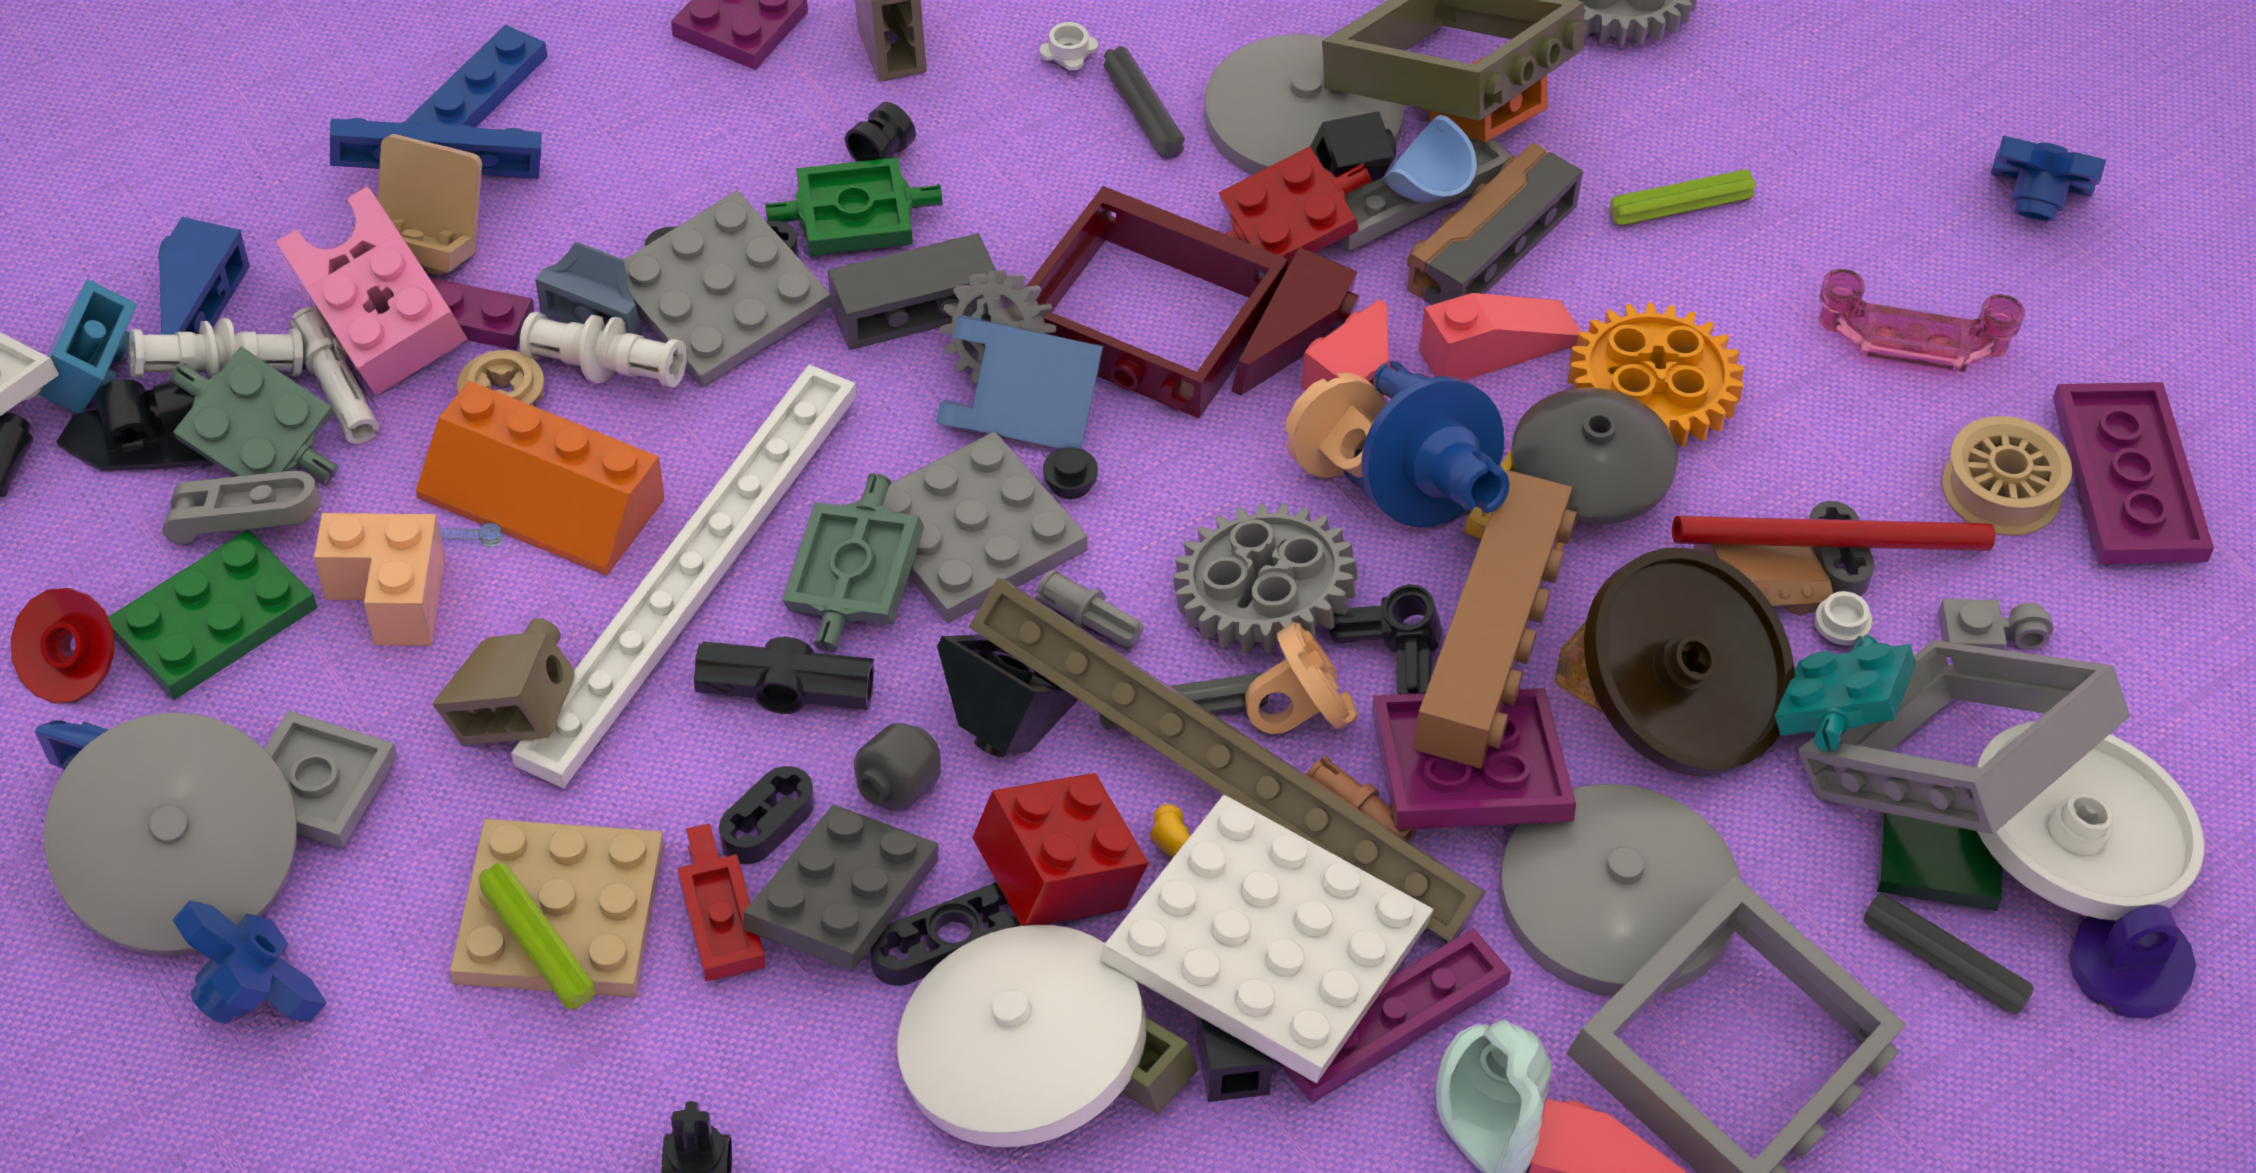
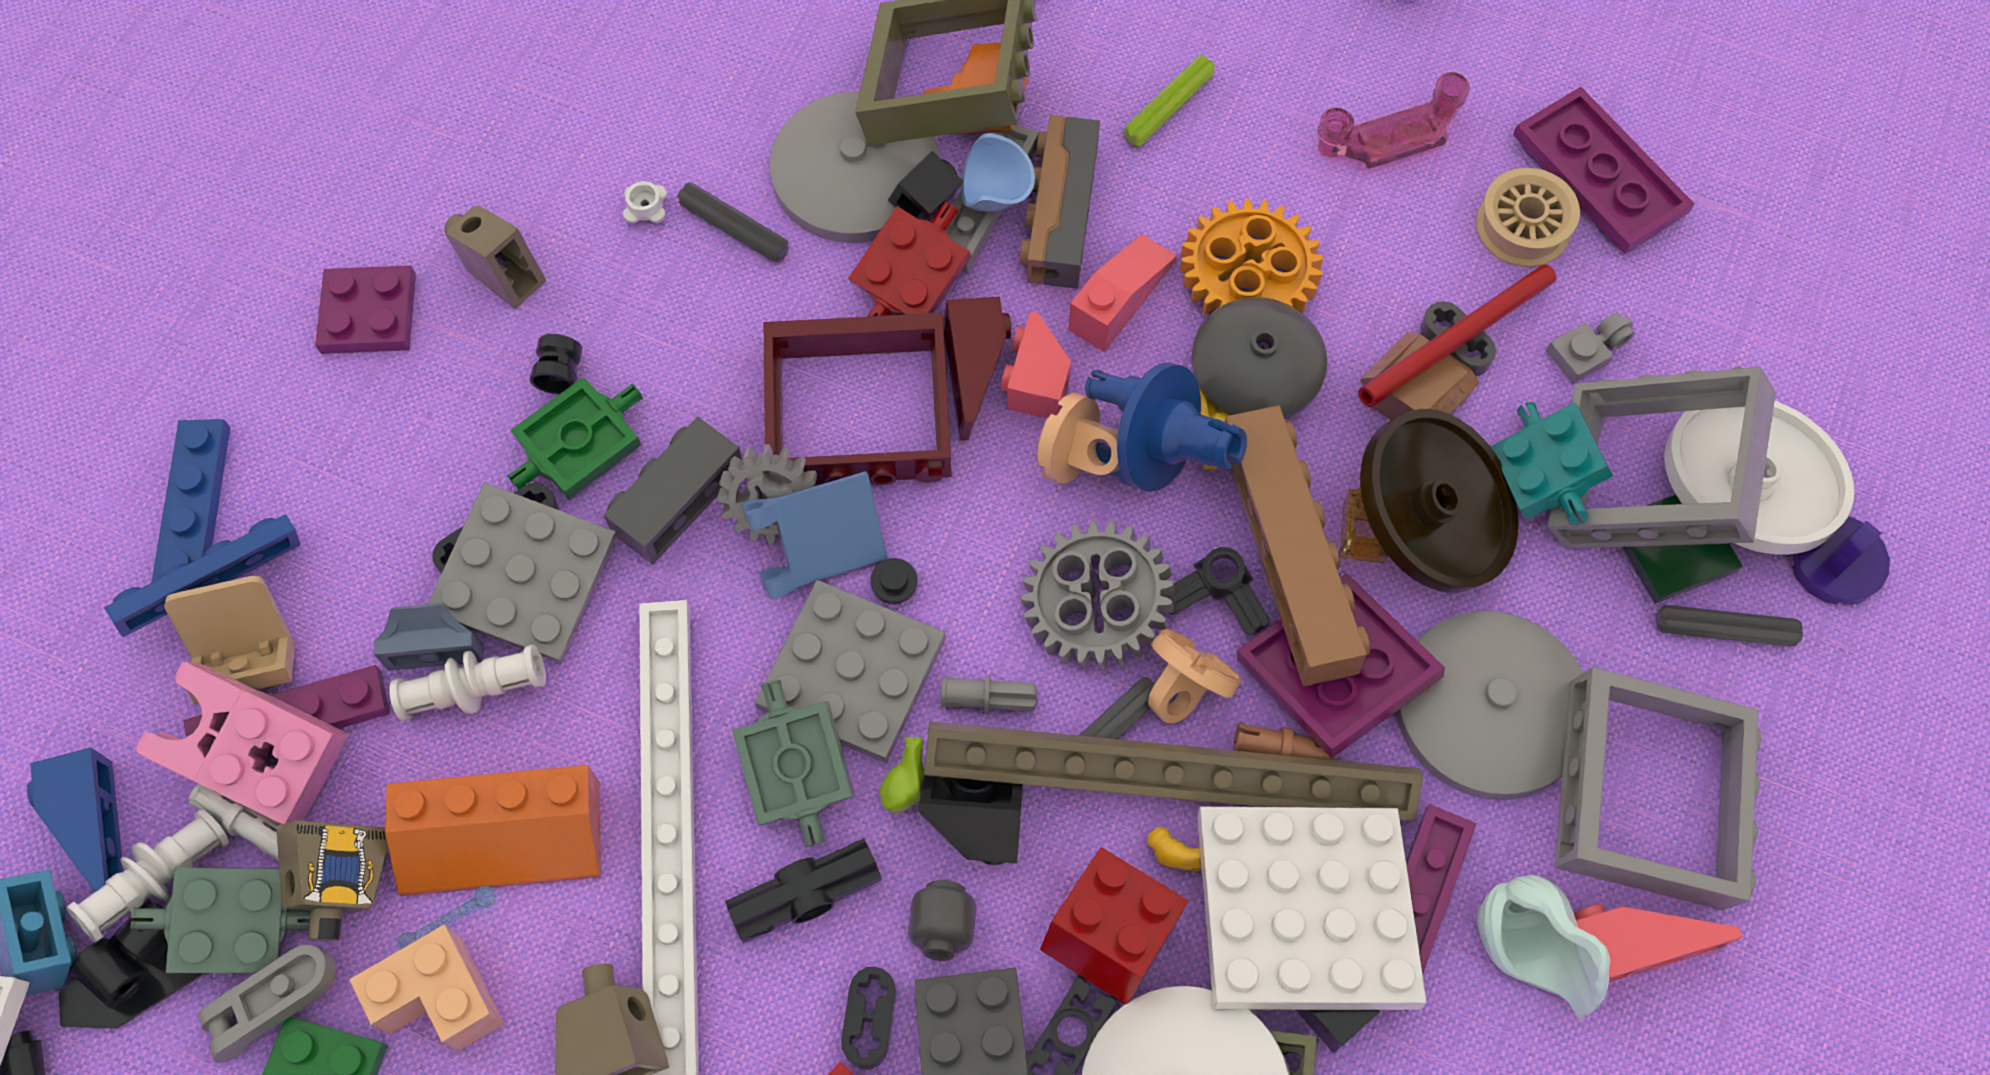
camera: 30 degrees left, 15 degrees up
(368, 426) = (329, 871): none -> torso
(505, 368) = (393, 741): tan gear -> none
(948, 625) = (904, 782): none -> lime animal
(1843, 618) = (1497, 395): white plate -> none

